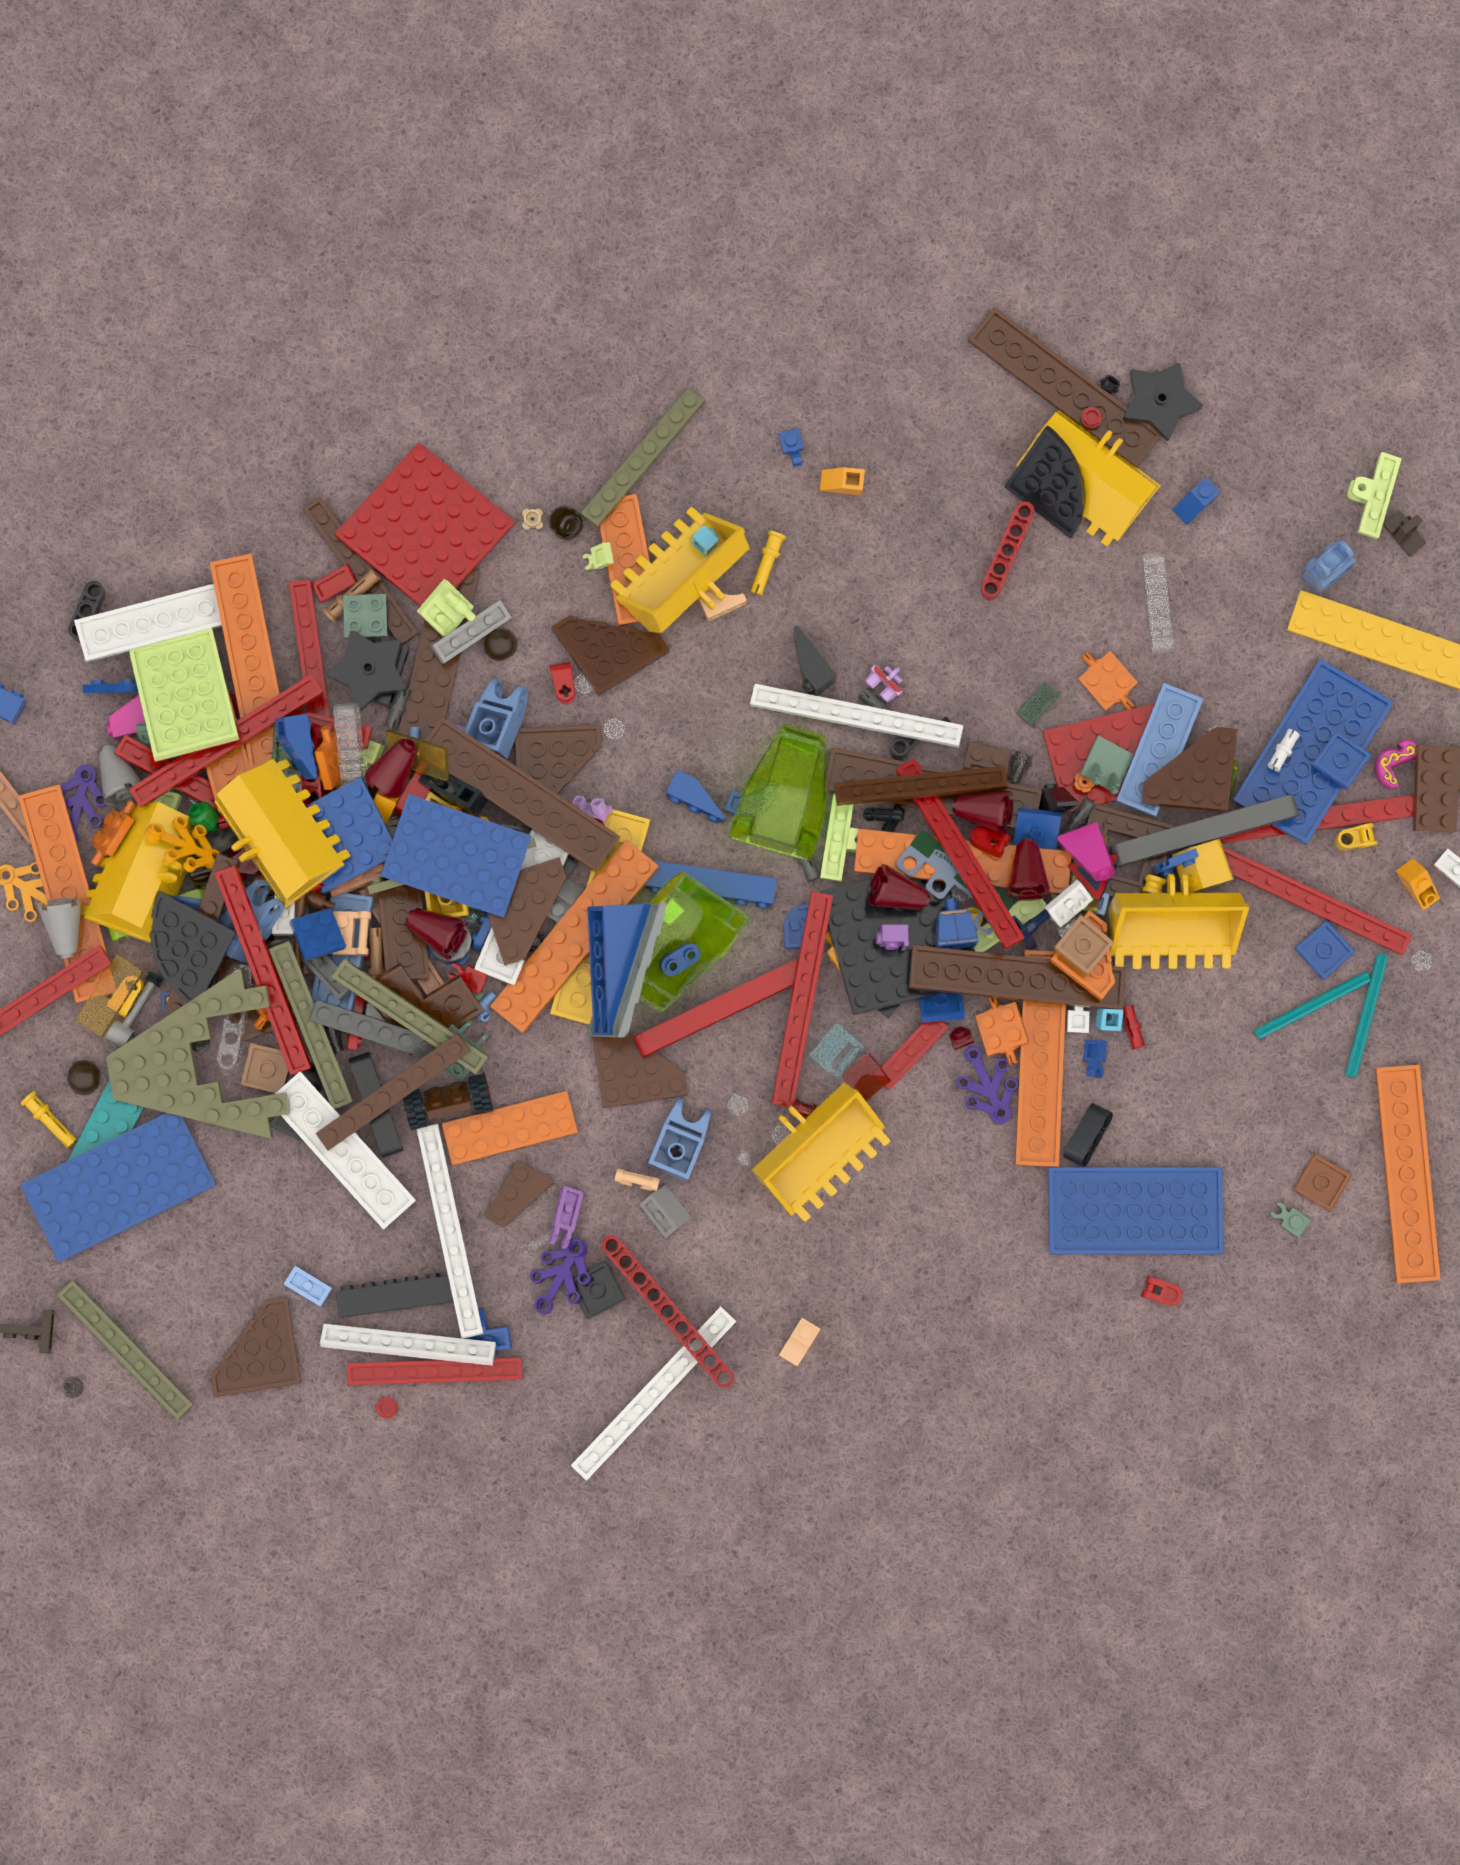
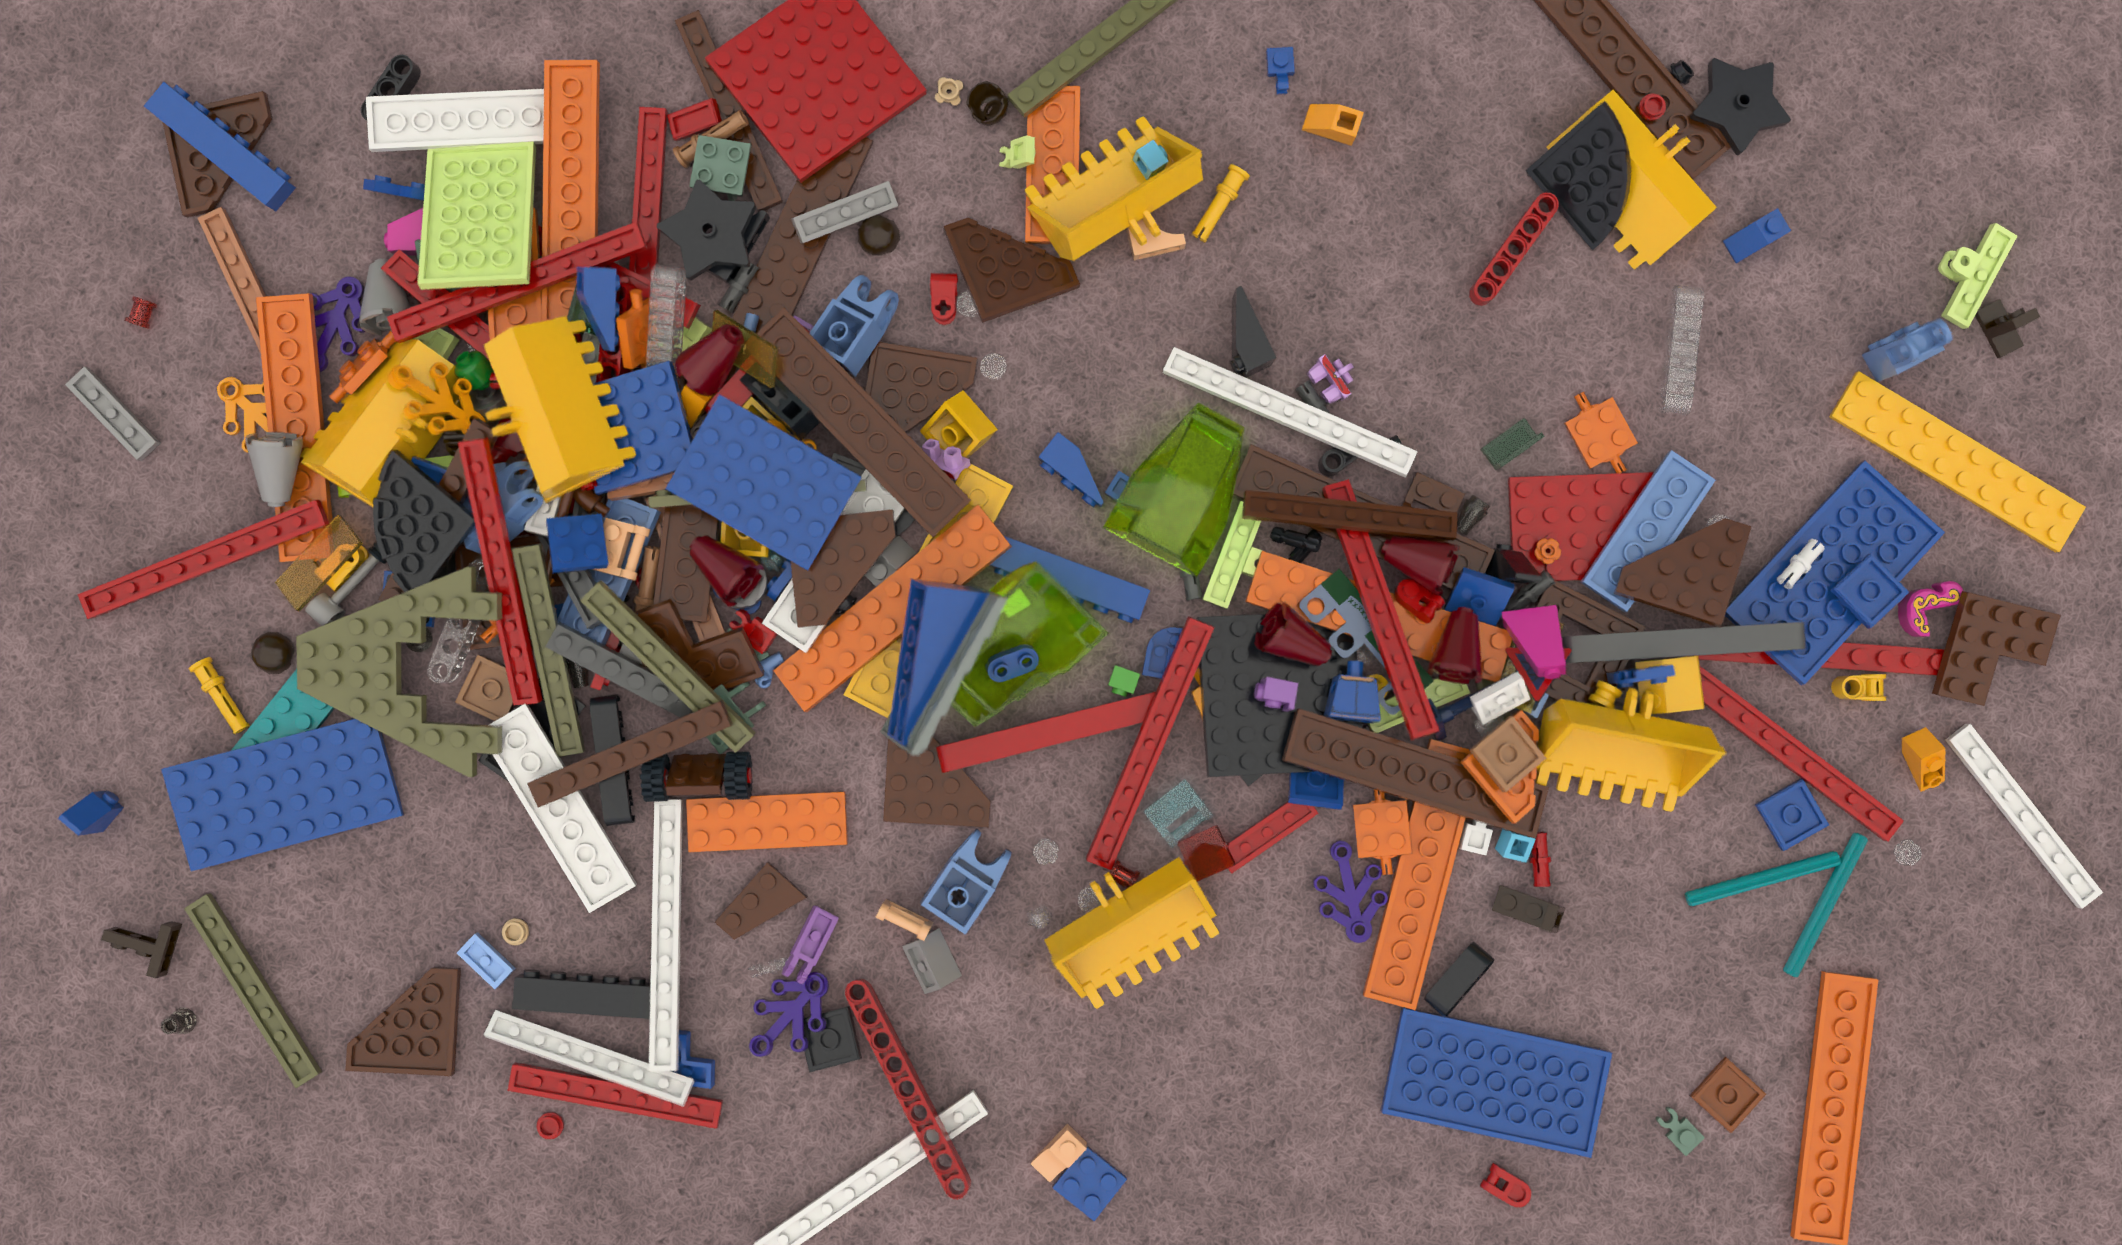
camera: 20 degrees right, 5 degrees up
(326, 1258) = (515, 931): none -> tan plate
(446, 608) = (818, 176): yellowish green plate -> none
(597, 780) = (959, 425): none -> yellow slope
(771, 955) = (1123, 681): none -> bright green plate
(829, 1360) = (1090, 1183): none -> blue plate
(961, 1037) = (1330, 828): dark red plate -> none
(1094, 1054) = (1488, 882): blue plate -> none
(1106, 764) = (1580, 536): sand green plate -> none
(1133, 1068) = (1528, 909): none -> dark brown bracket

